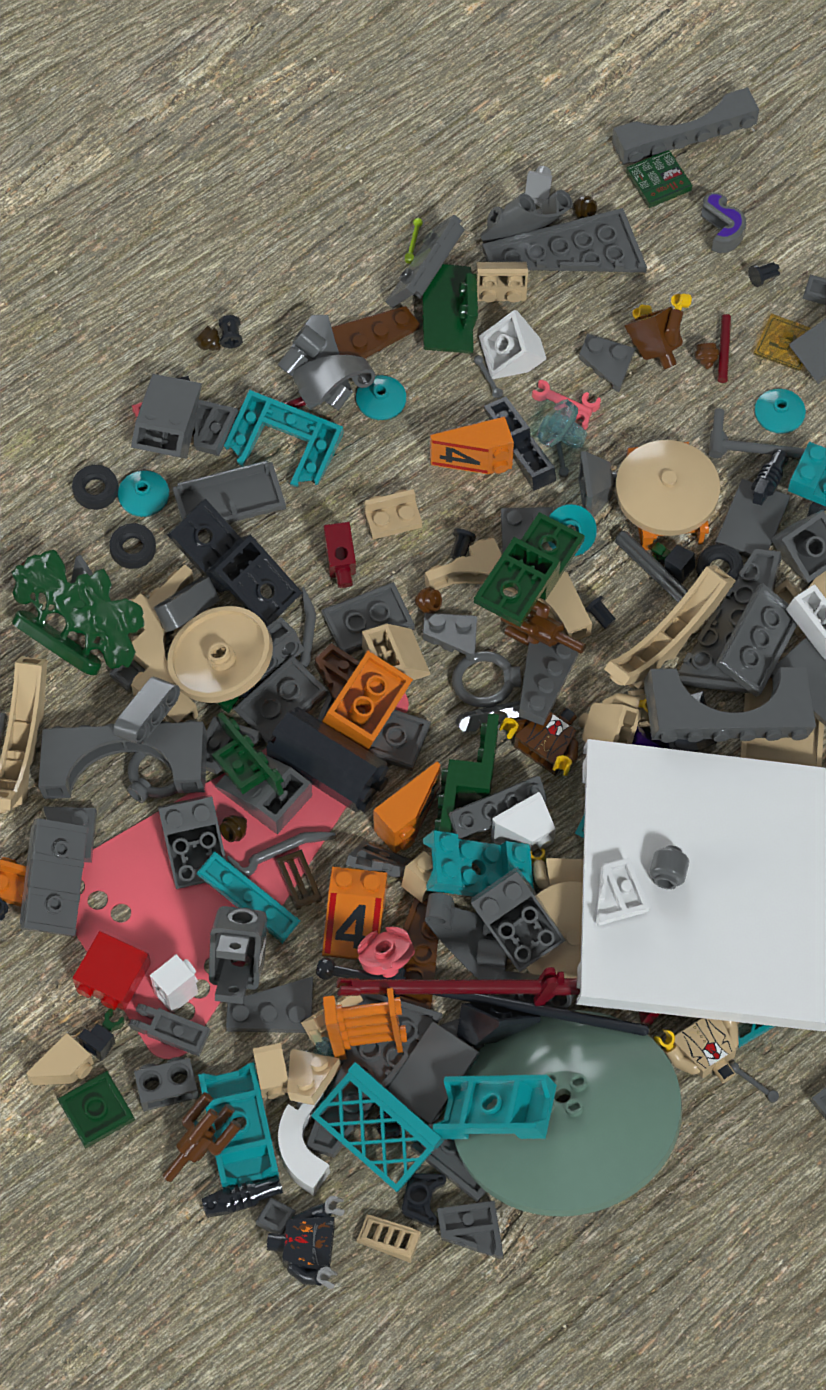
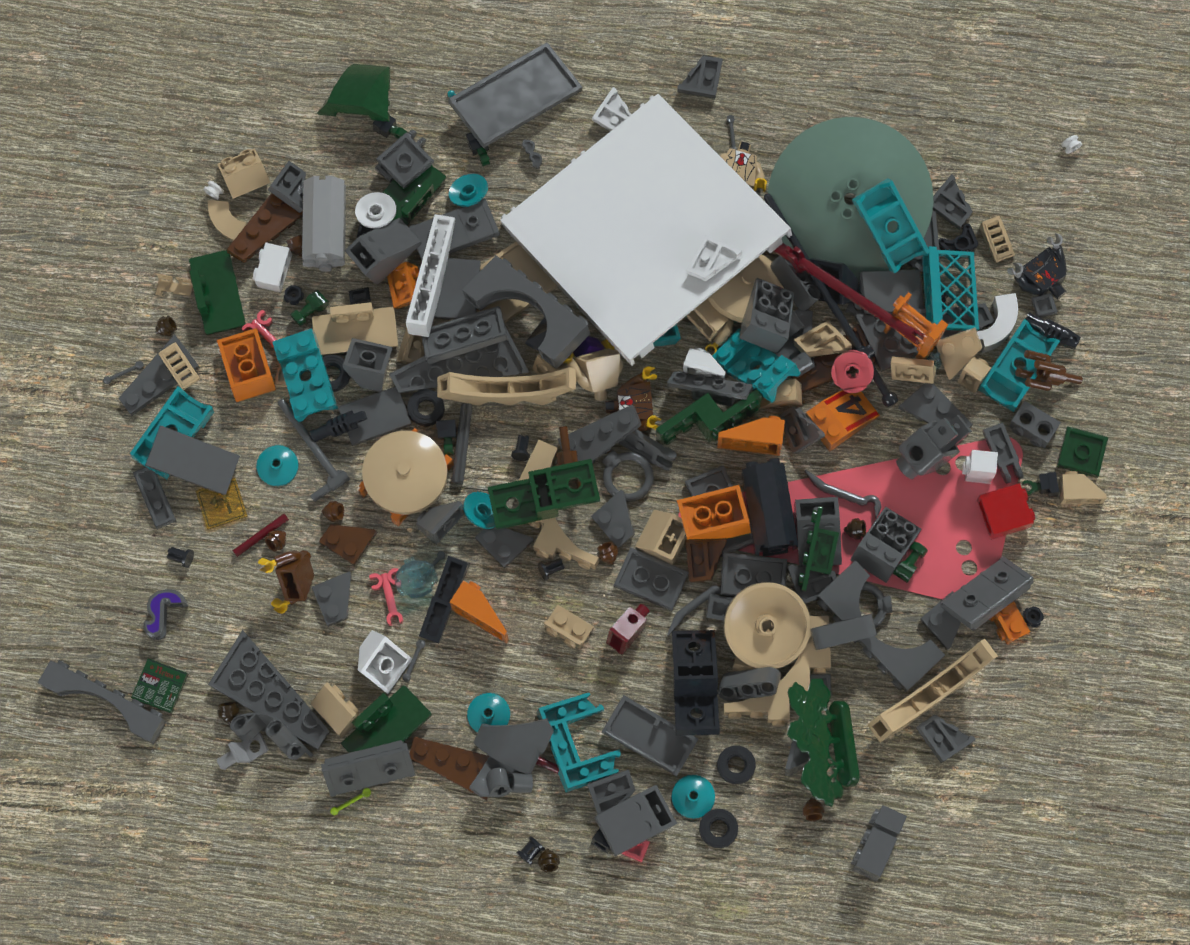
camera: 130 degrees left, 10 degrees up
(152, 838) = (907, 568): none -> dark green leg
(246, 894) = (889, 480): teal tile -> none
(316, 897) = (843, 482): dark brown tile -> none
(445, 955) = (822, 341): none -> tan wing
(650, 408) = (347, 541): none -> reddish brown wing
(669, 867) = (668, 248): dark grey head -> none
(689, 417) = (333, 511): none -> reddish brown plate

